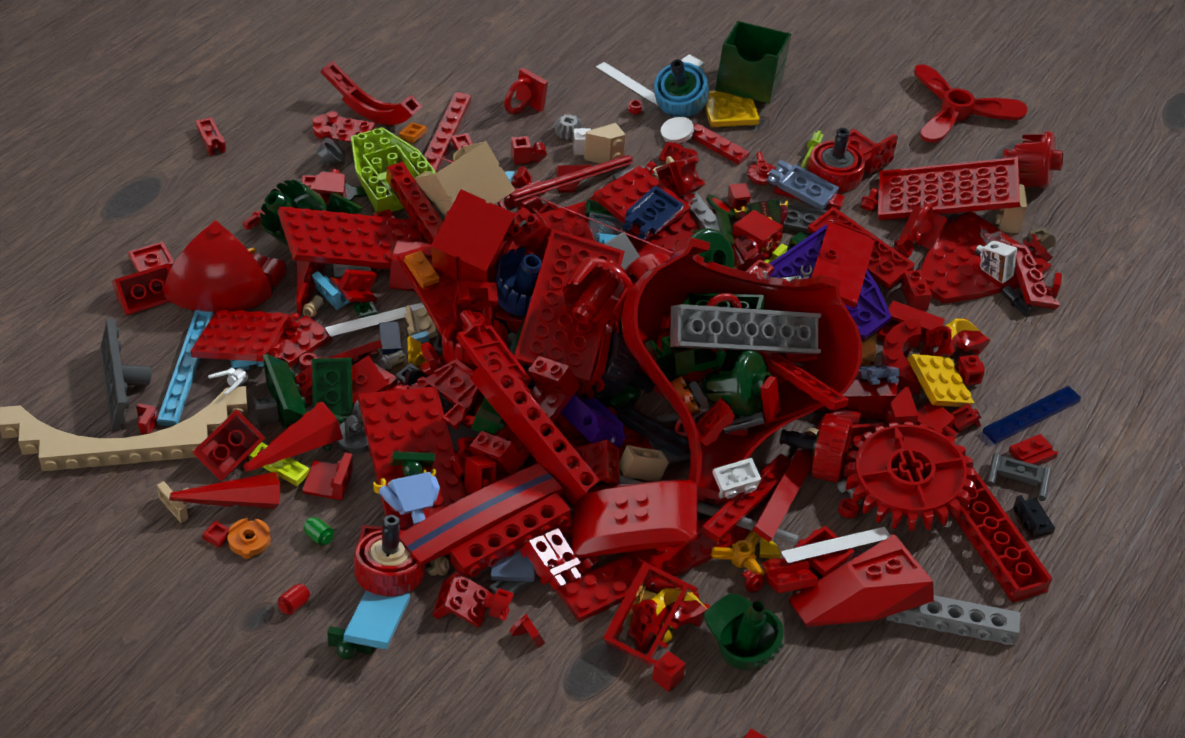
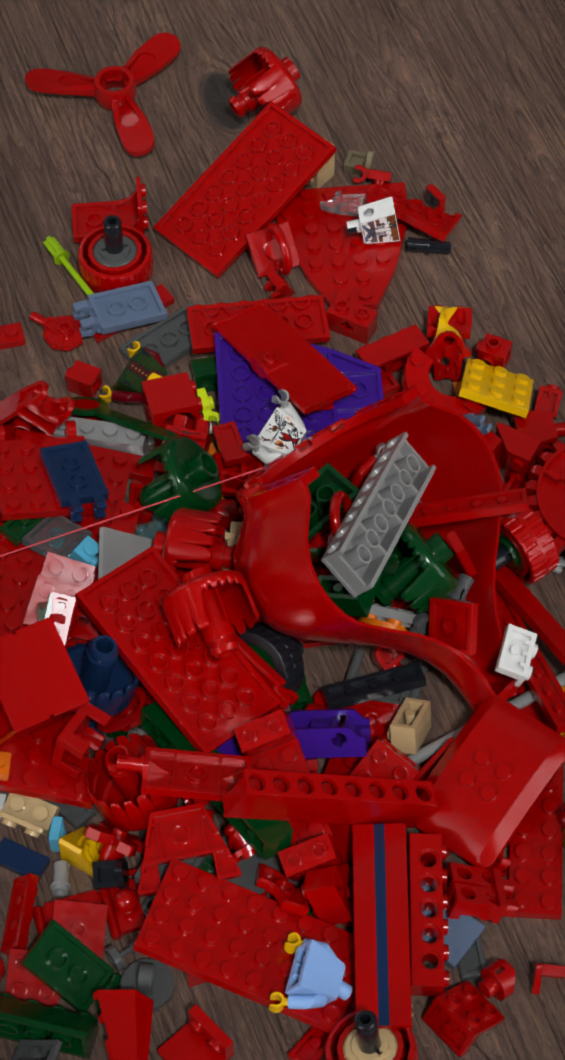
camera: 50 degrees left, 10 degrees up
(412, 461) = (271, 949): dark green tile -> none
(870, 202) = (189, 269): red piece -> none

